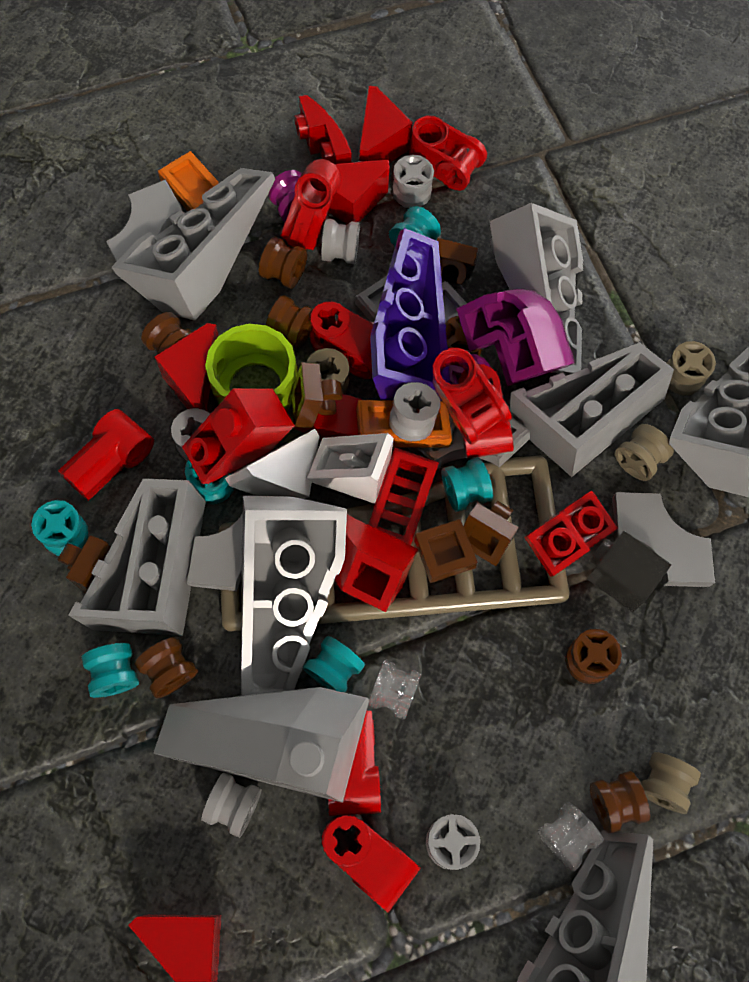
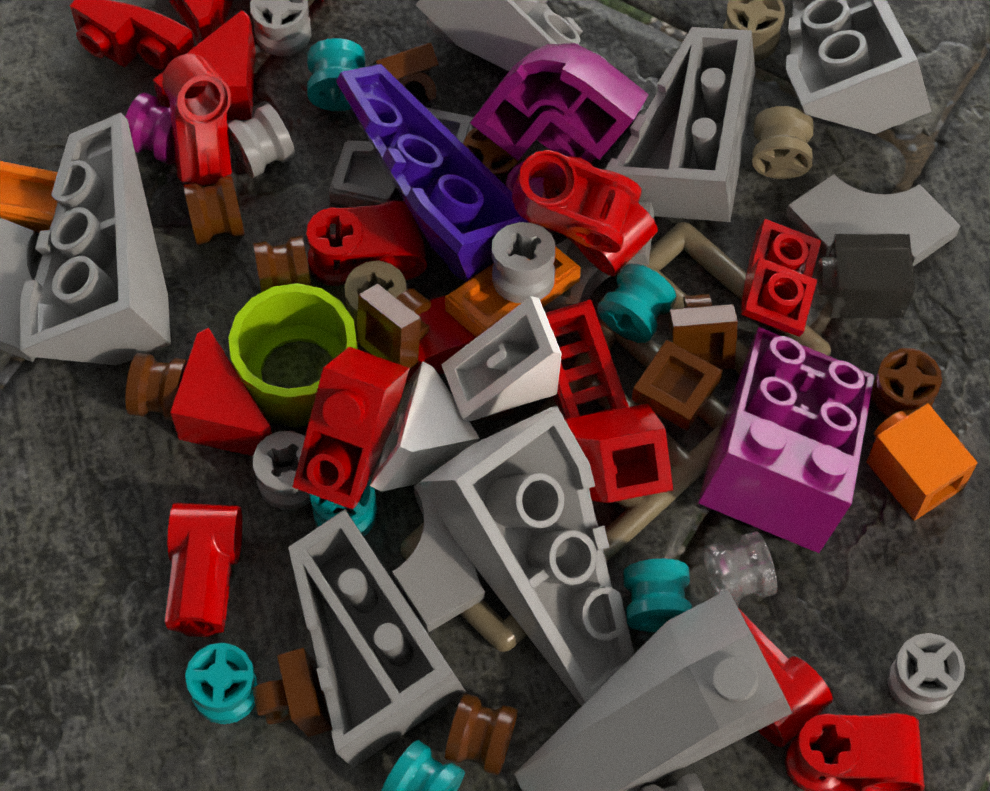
camera: 35 degrees left, 5 degrees down
(491, 635) = (789, 441): none -> magenta slope
(562, 708) = (920, 460): none -> orange brick

